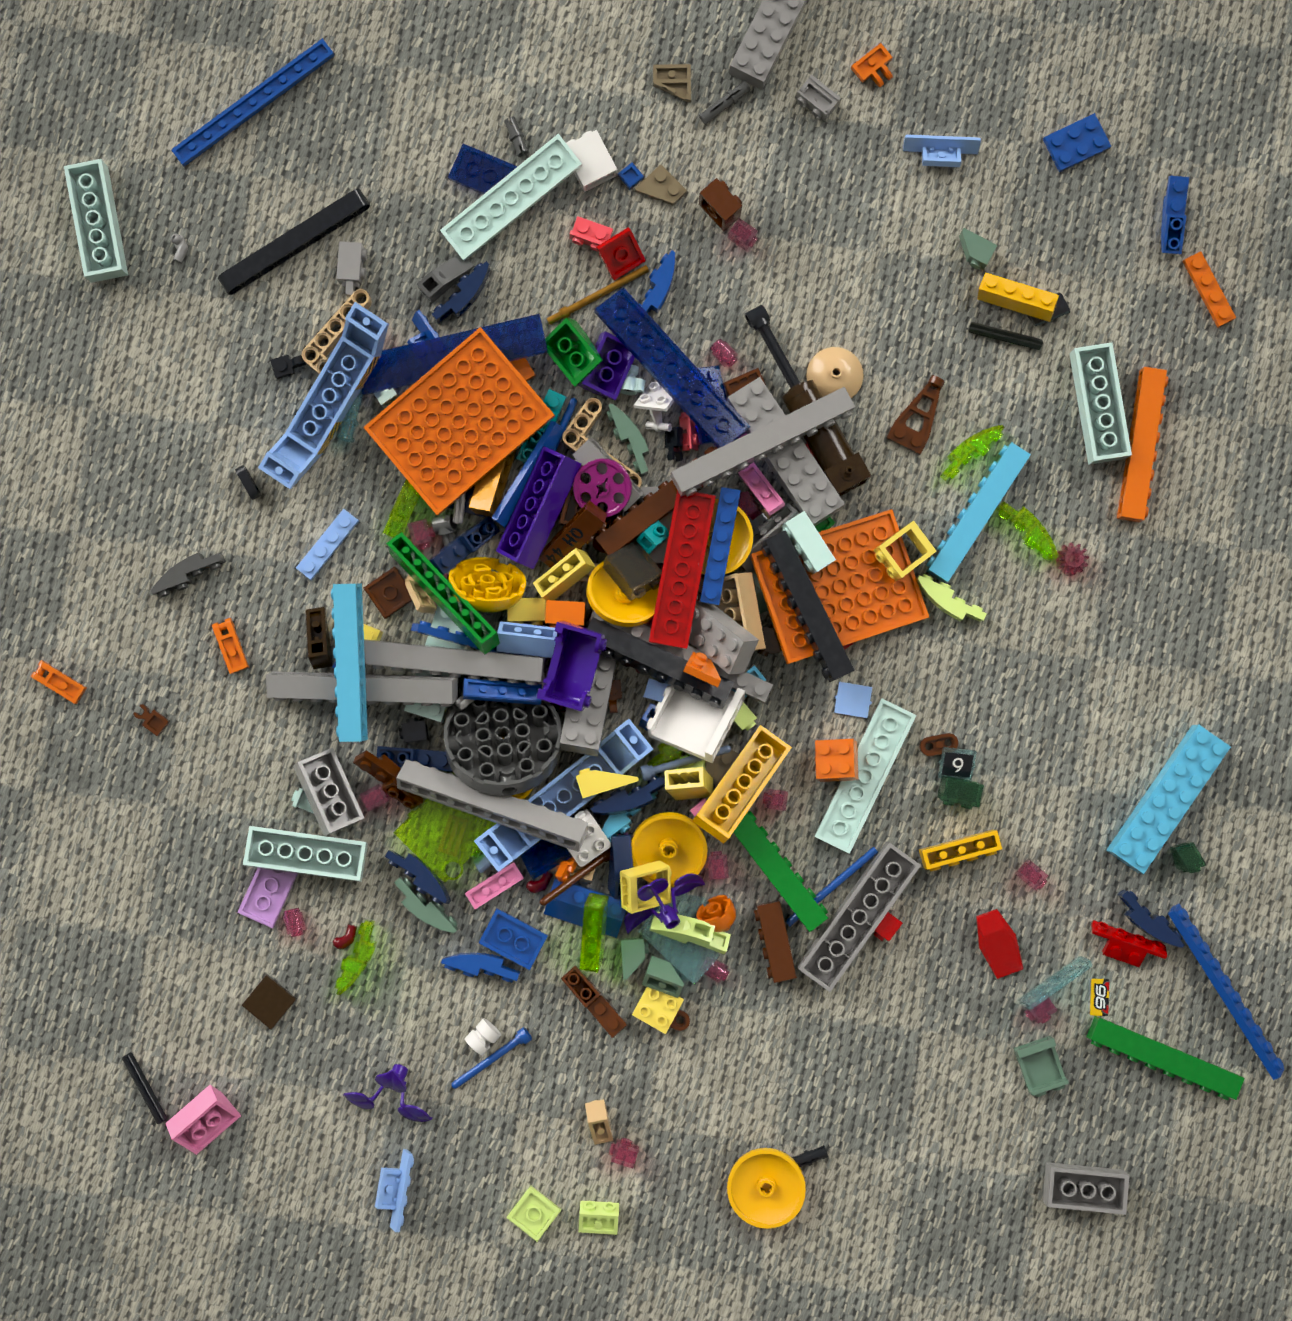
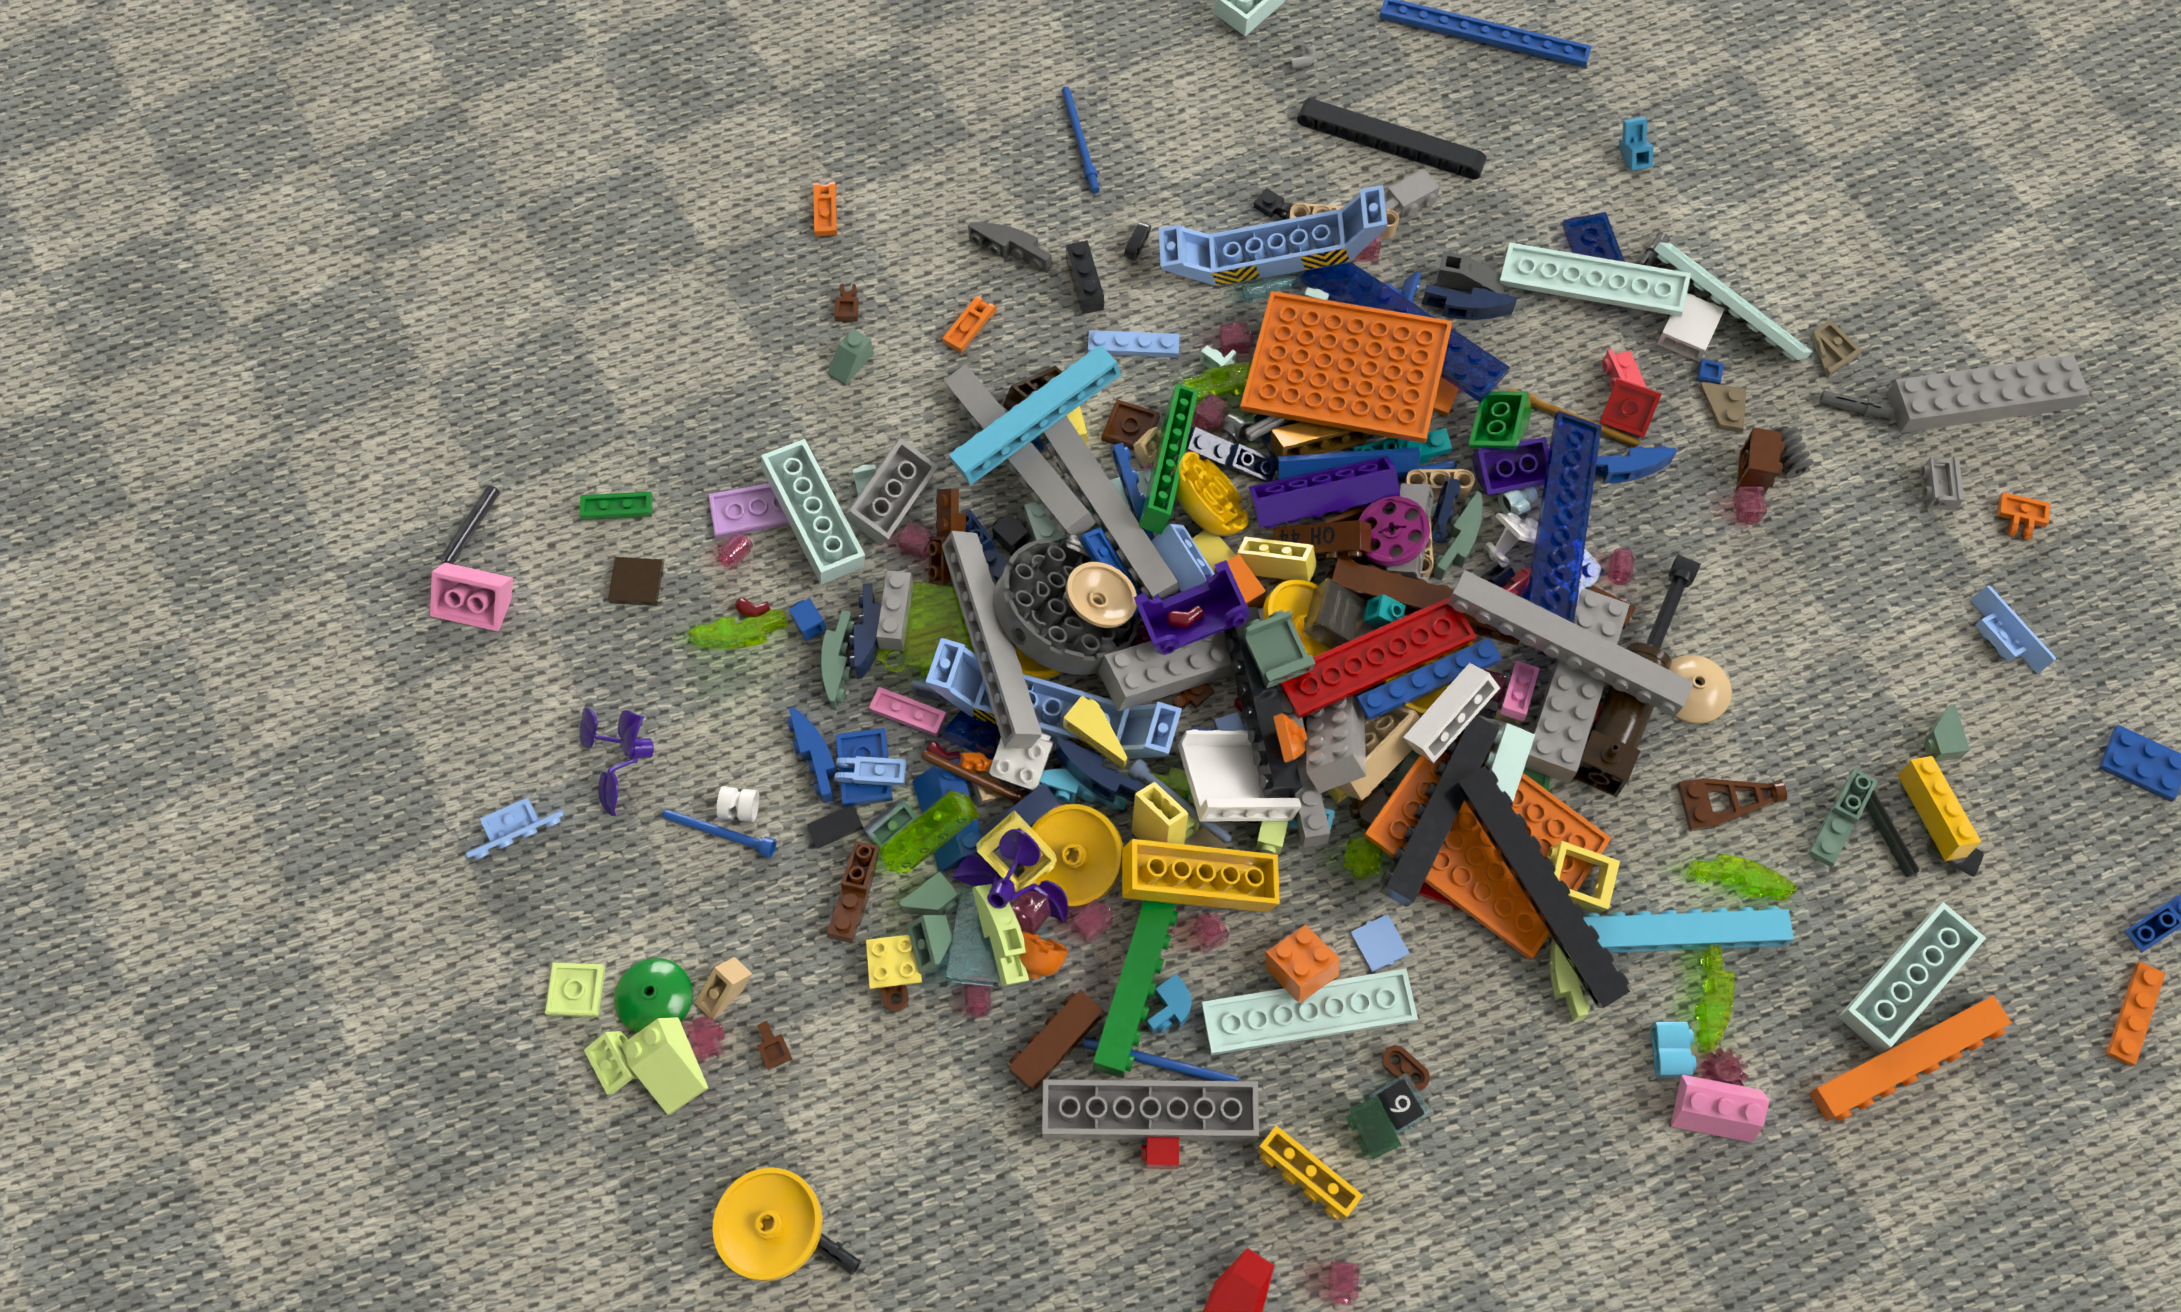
camera: 55 degrees right, 20 degrees down
(164, 472) = (1089, 170): none -> blue bar
(198, 747) = (850, 356): none -> sand green slope
(201, 980) = (616, 505): none -> green plate
(252, 541) = (1084, 277): none -> black brick
(375, 473) = (1235, 337): none -> clear pink brick
(382, 500) = (1213, 358): none -> light aqua bracket
(382, 908) = (807, 619): none -> blue brick
(421, 849) = (895, 610): none -> light grey brick
(427, 79) = (1634, 145): none -> dark azure brick
(521, 705) = (1101, 594): none -> tan dish
(524, 936) = (872, 771): none -> light blue hinge
(539, 983) = (835, 826): none -> black tile
(562, 947) = (889, 823): none -> slope
(571, 674) = (1184, 619): none -> dark red arm
(576, 1154) = (670, 998): none -> green dish
(593, 118) = (1738, 306): none -> light aqua plate
(604, 436) = (1444, 509): none -> dark blue hinge
(625, 1188) = (665, 1063): none -> yellowish green slope
(636, 630) = (1277, 649): none -> sand green panel
(660, 1115) = (773, 1049): none -> reddish brown plate
(687, 902) = (1031, 911): none -> clear pink brick
(726, 174) = (1792, 457): none -> dark grey piece
(755, 553) = (1451, 712): none -> white brick
(796, 672) = (1362, 857): none -> clear neon green brick
(803, 851) = (1177, 1004): none -> dark azure brick
(898, 584) = (1542, 887): none -> black brick
(979, 358) = (1842, 817): none -> sand green slope
(1039, 579) = (1672, 1049): none -> medium azure brick
(1091, 580) = (1719, 1108): none -> bright pink slope

